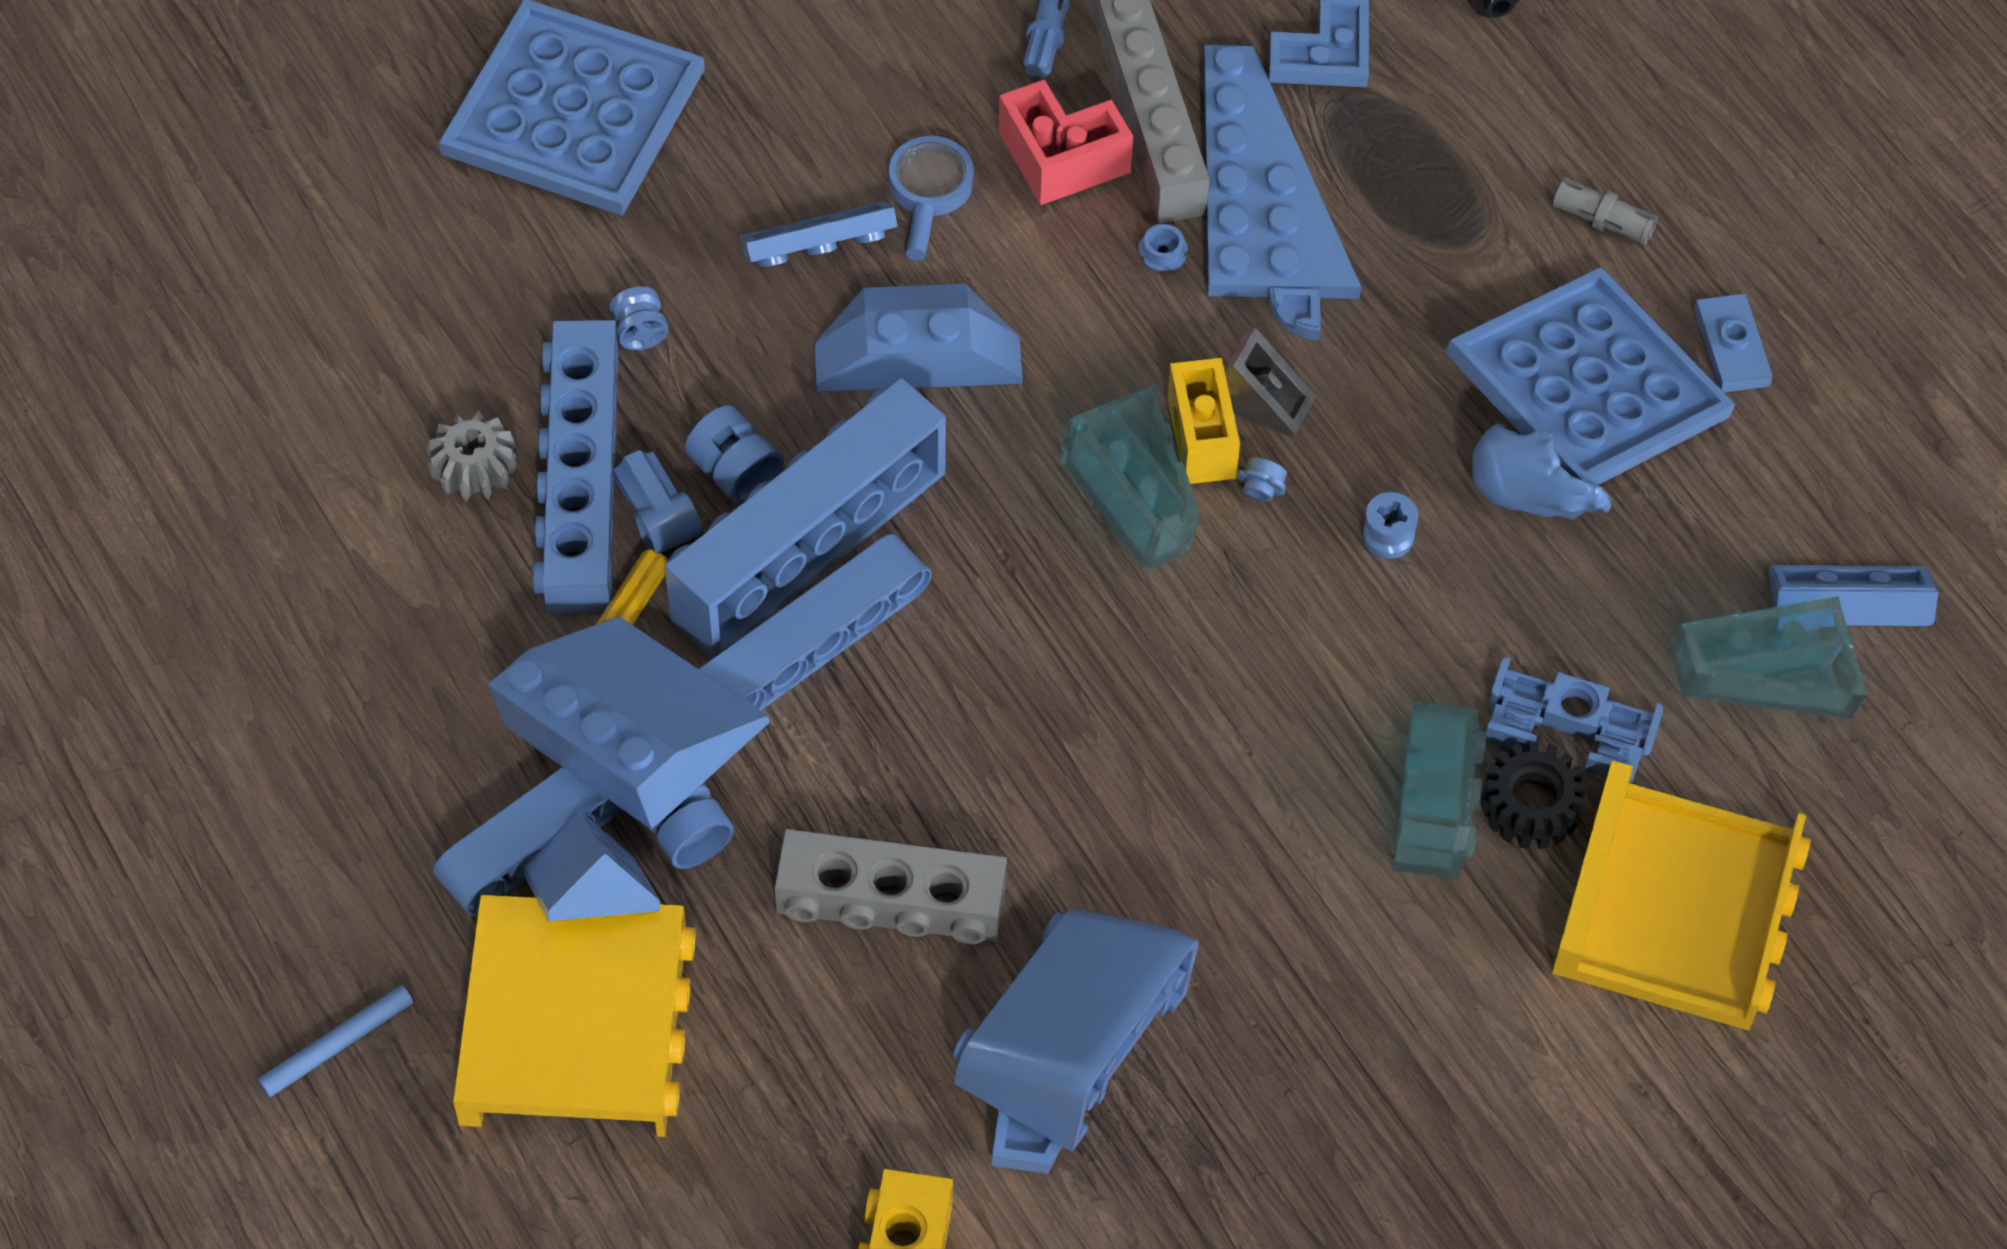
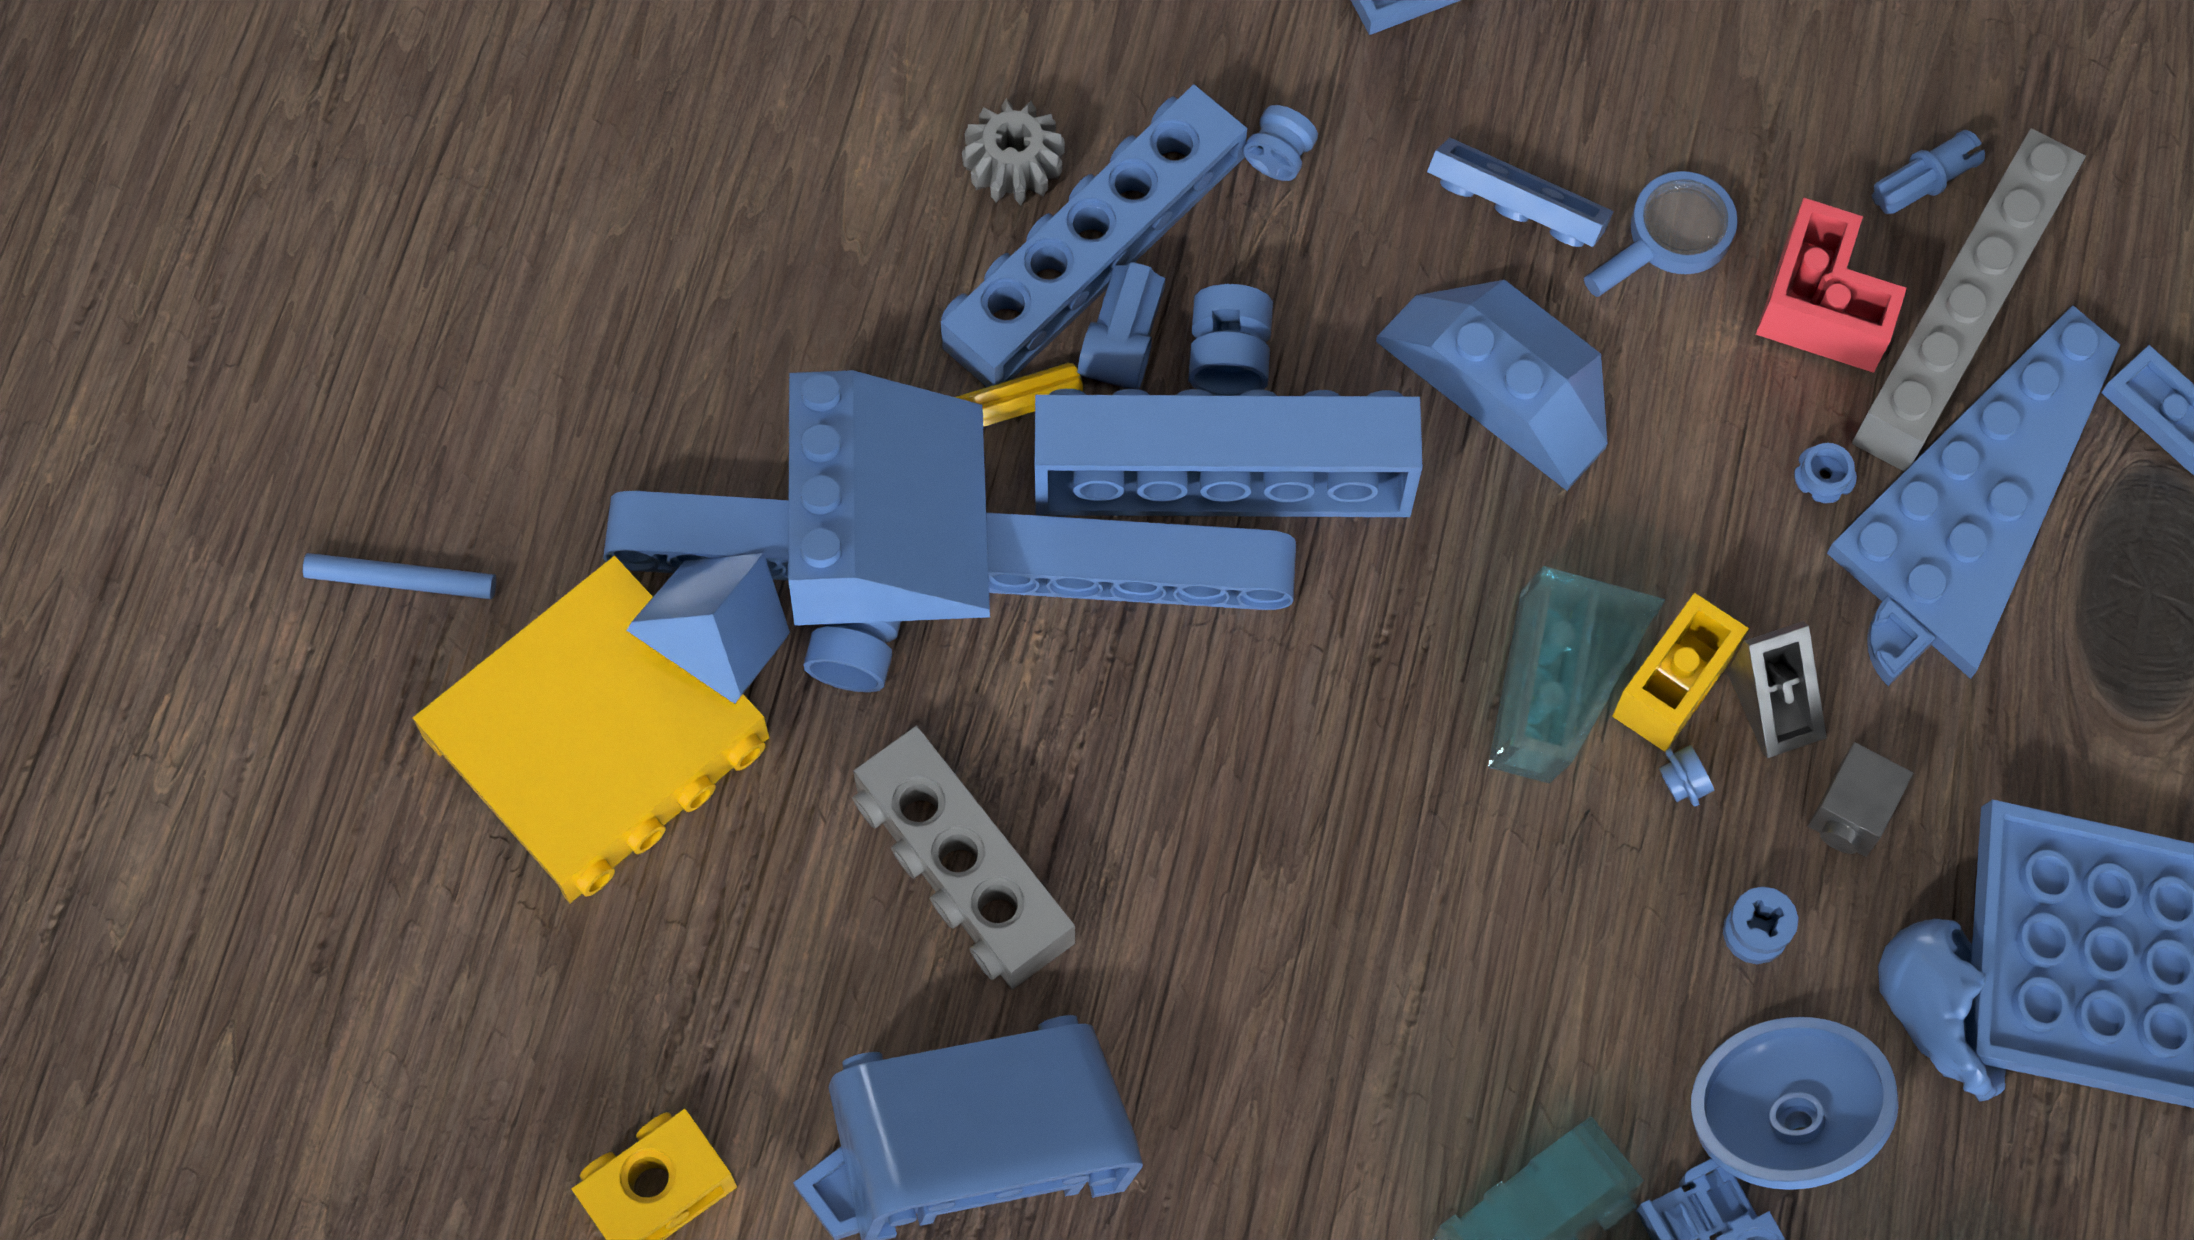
camera: 45 degrees right, 10 degrees up
(1373, 409) = (1859, 801): none -> flat silver brick
(1513, 597) = (1790, 1078): none -> medium blue dish

